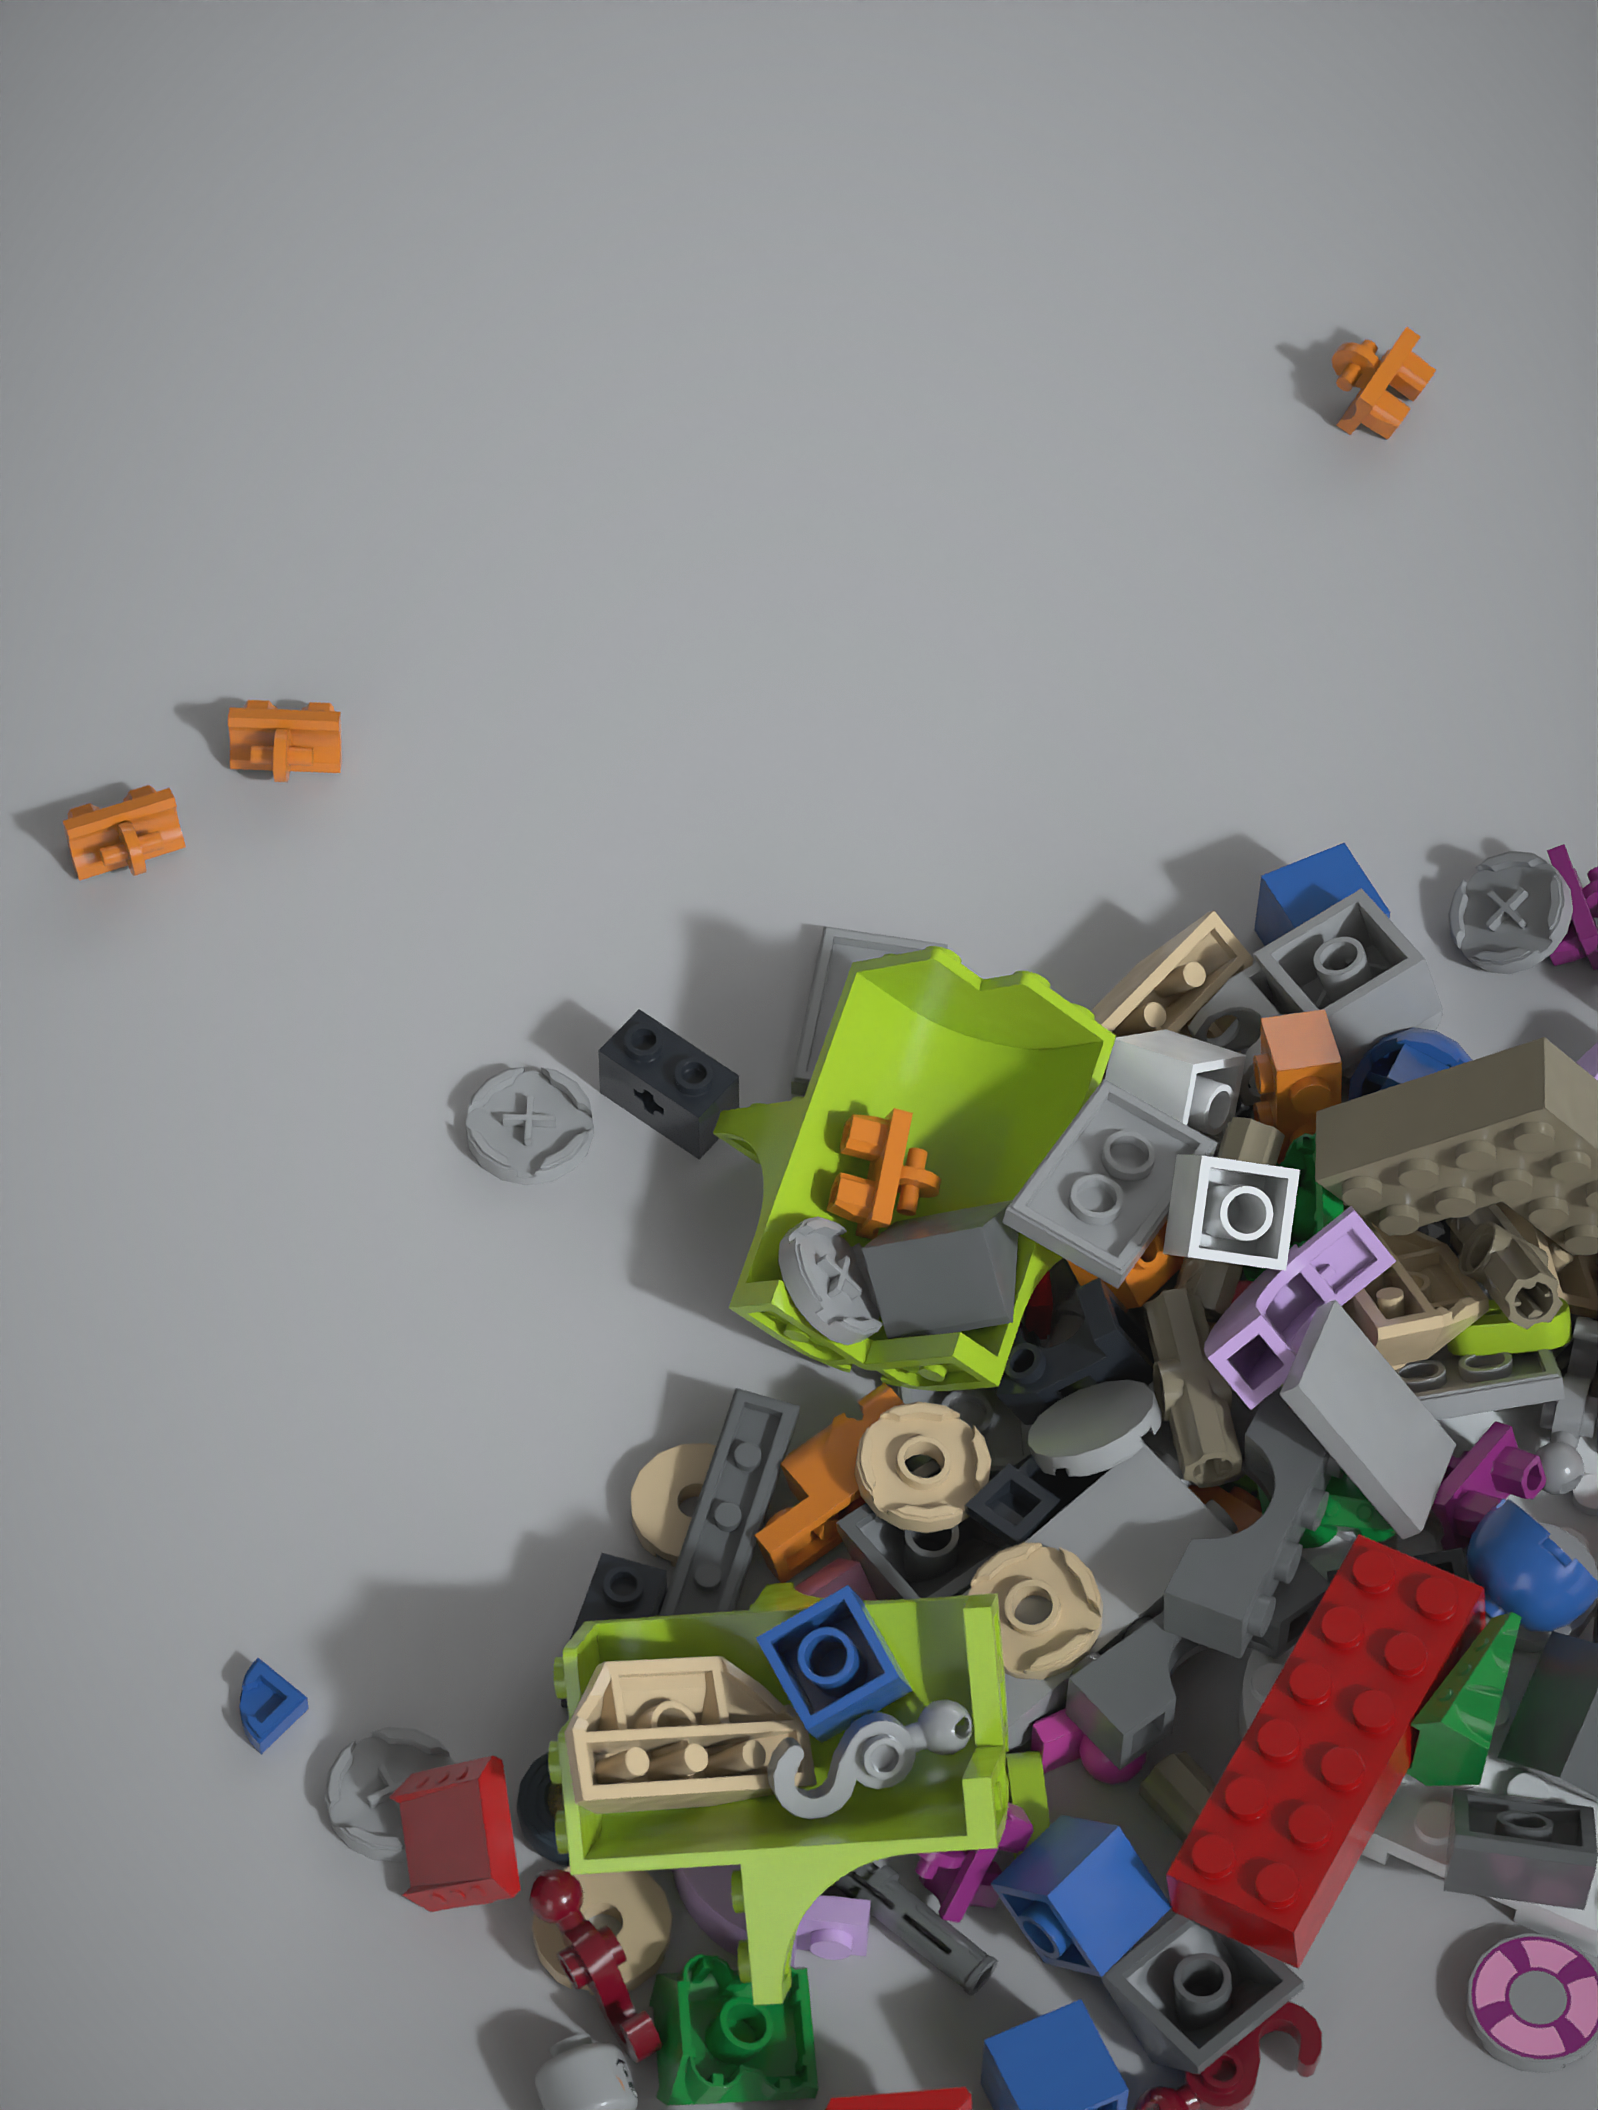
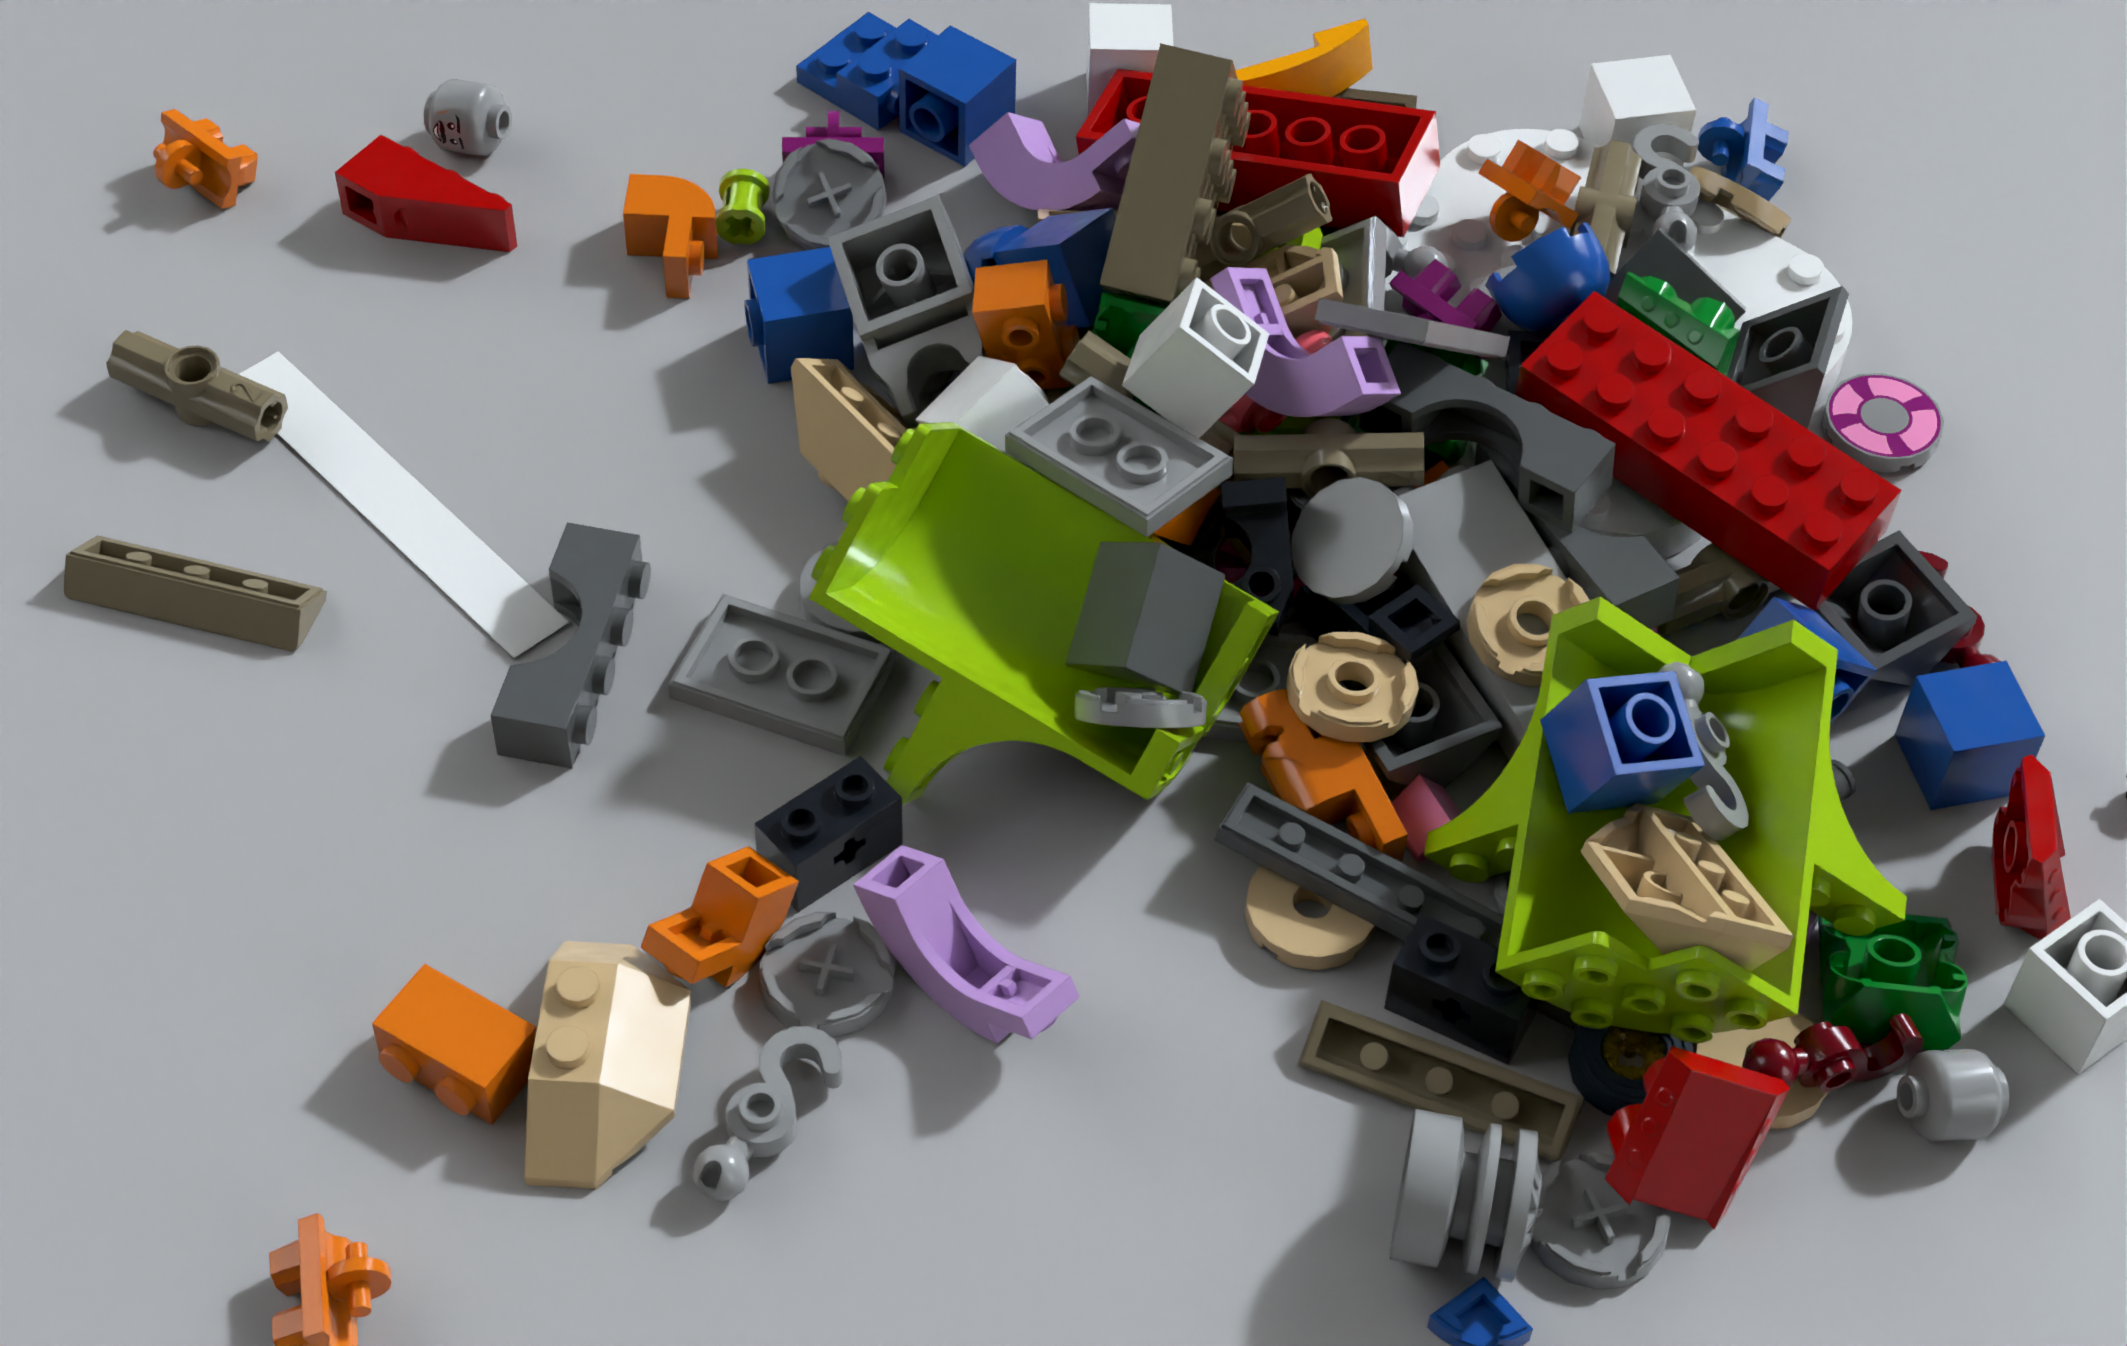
camera: 80 degrees left, 5 degrees down
(285, 738) = (261, 1107): orange hips -> none
(358, 1104) = (763, 1114): none -> light grey piece
(360, 1647) = (1465, 1196): none -> light grey wheel
(378, 860) = (455, 1044): none -> orange brick
(397, 963) = (601, 1062): none -> tan wedge
(526, 1631) = (1438, 1079): none -> dark tan slope
(540, 1025) = (729, 922): none -> orange brick
(556, 1209) = (951, 954): none -> lavender arch
(841, 543) = (192, 592): none -> dark tan slope
(873, 1199) = (1030, 646): orange hips -> none
(914, 843) = (551, 702): none -> dark grey arch
(998, 666) = (408, 512): none -> white sticker
(1074, 467) = (197, 385): none -> dark tan piece
(1386, 567) = (418, 200): none -> red slope
(1423, 796) = (671, 221): none -> orange brick
(1473, 843) = (741, 215): none -> lime bush
(1517, 575) = (467, 117): none -> light grey head

